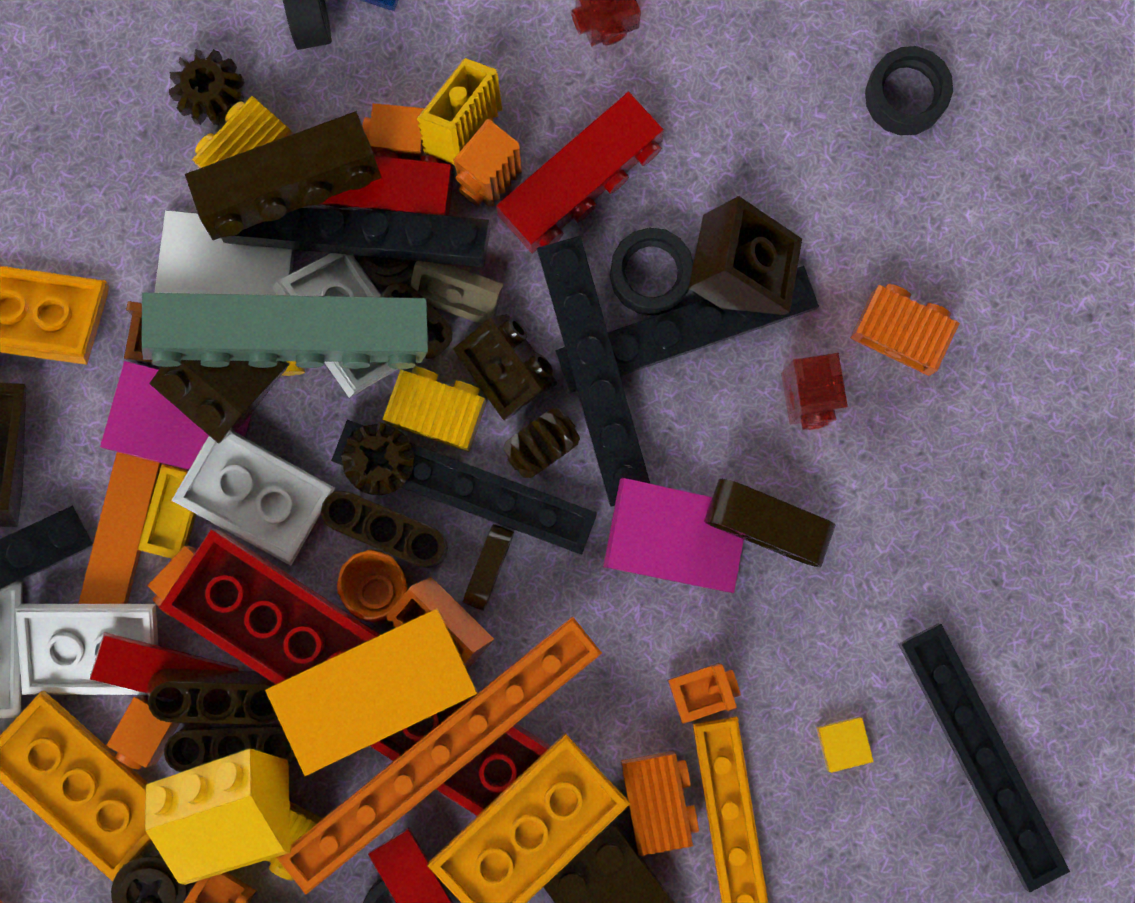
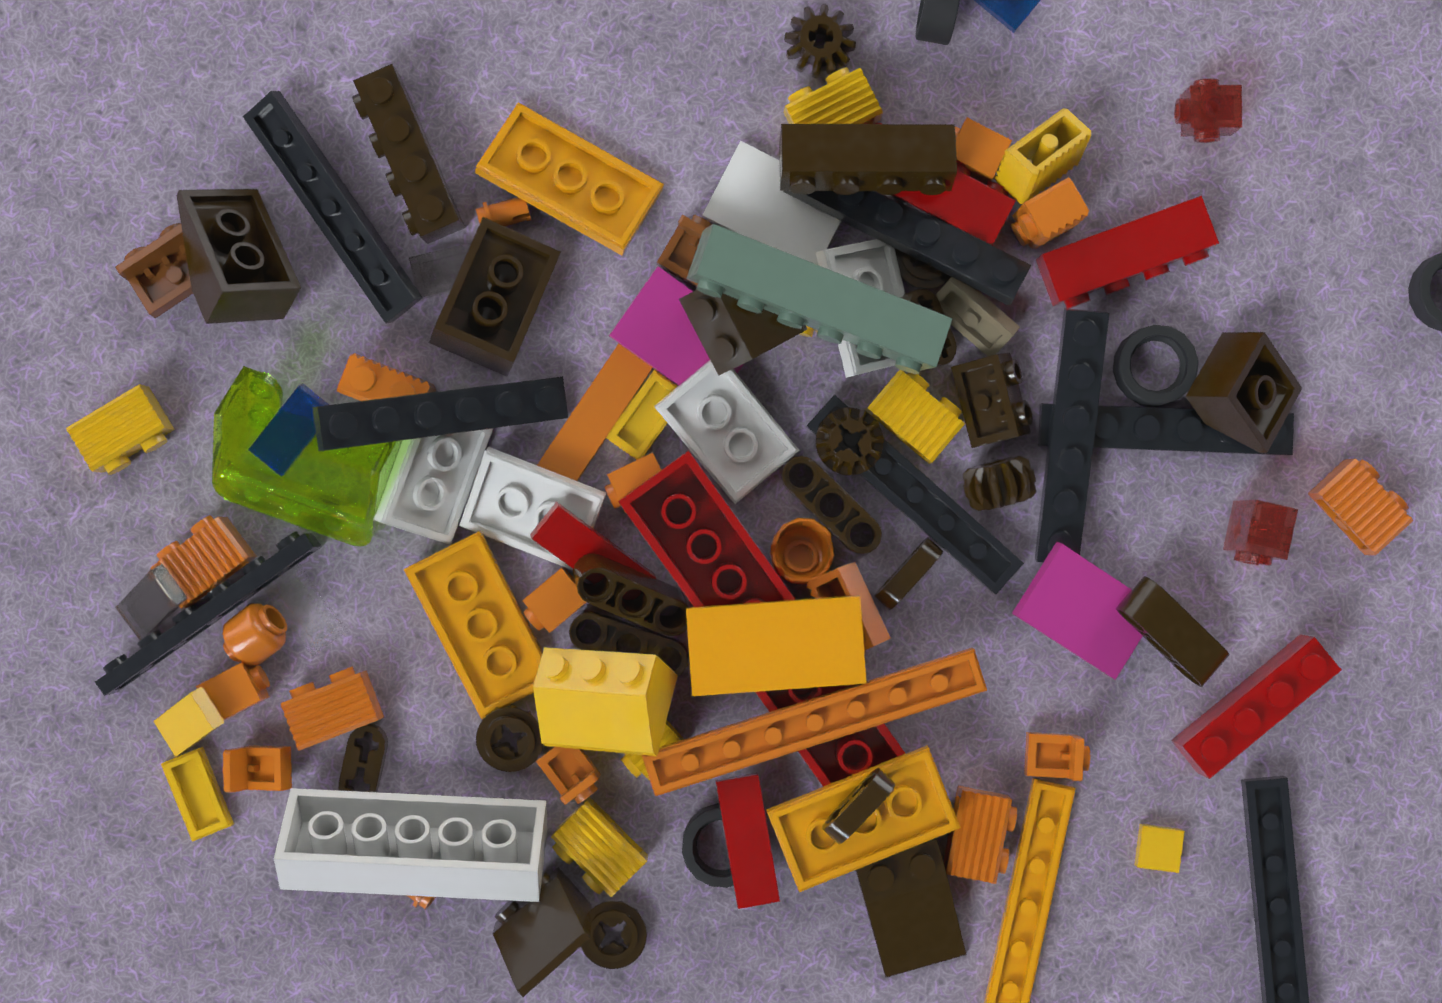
camera: 20 degrees right, 5 degrees up
(514, 823) = (858, 806): none -> dark brown beam
(881, 564) = (1256, 705): none -> red brick

